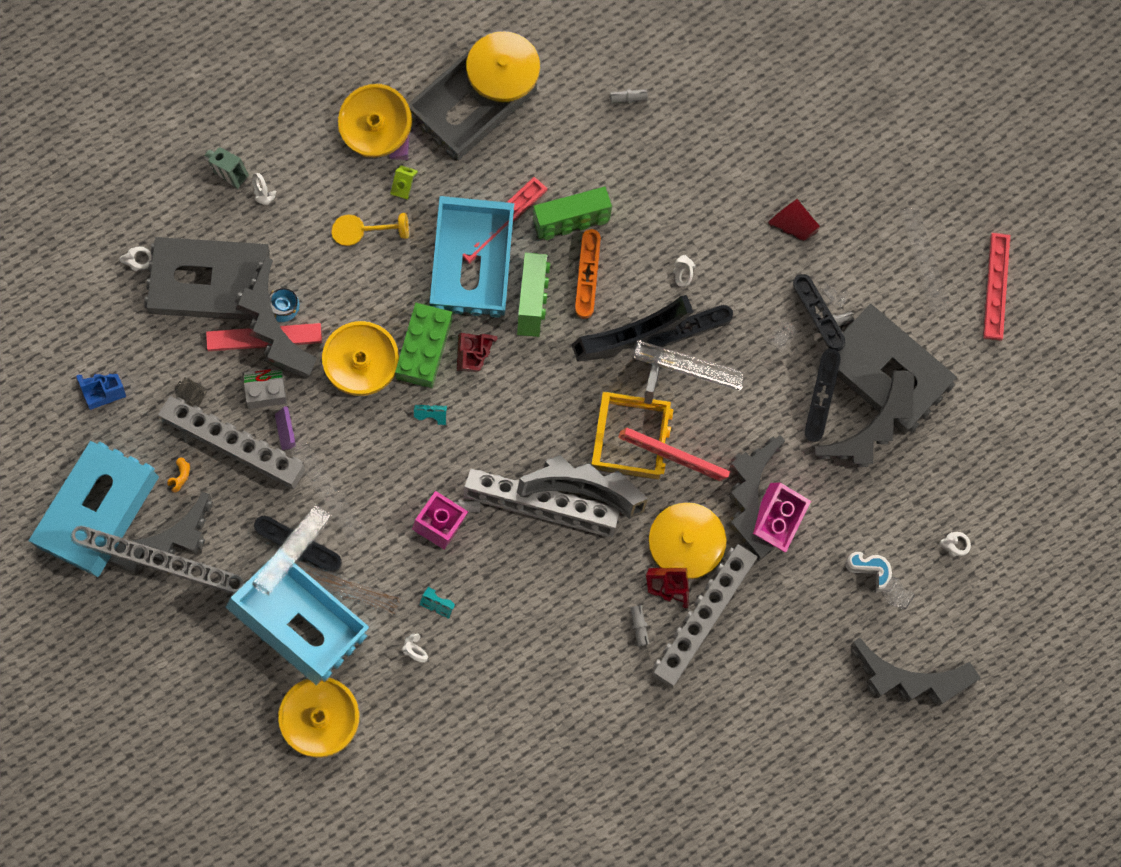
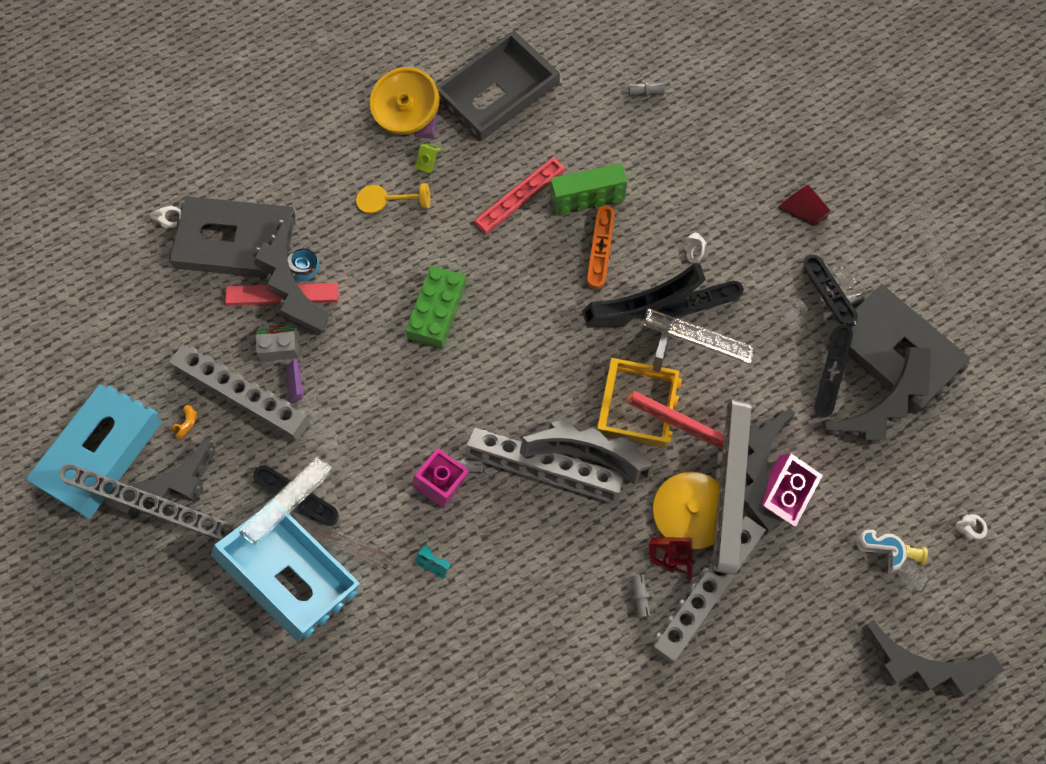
camera: 10 degrees right, 5 degrees down
(101, 389) = (119, 337): blue slope -> none
(190, 392) = (204, 342): clear smoke brick -> none
(227, 166) = (259, 131): sand green torso -> none
(261, 194) = (292, 160): white piece -> none
(319, 717) = (300, 677): yellow dish -> none
(360, 358) = (372, 316): yellow dish -> none
(410, 648) = (401, 608): white piece -> none
(422, 414) = (430, 373): teal piece -> none
(459, 228) = (476, 201): medium azure panel -> none
(473, 351) = (485, 315): dark red slope -> none
(503, 66) = (528, 56): yellow dish -> none
(532, 294) = (546, 263): wedge -> none
(724, 516) = (732, 488): none -> light grey beam
(902, 573) = (919, 555): none -> light yellow bush
(996, 286) = (1006, 275): coral tile -> none

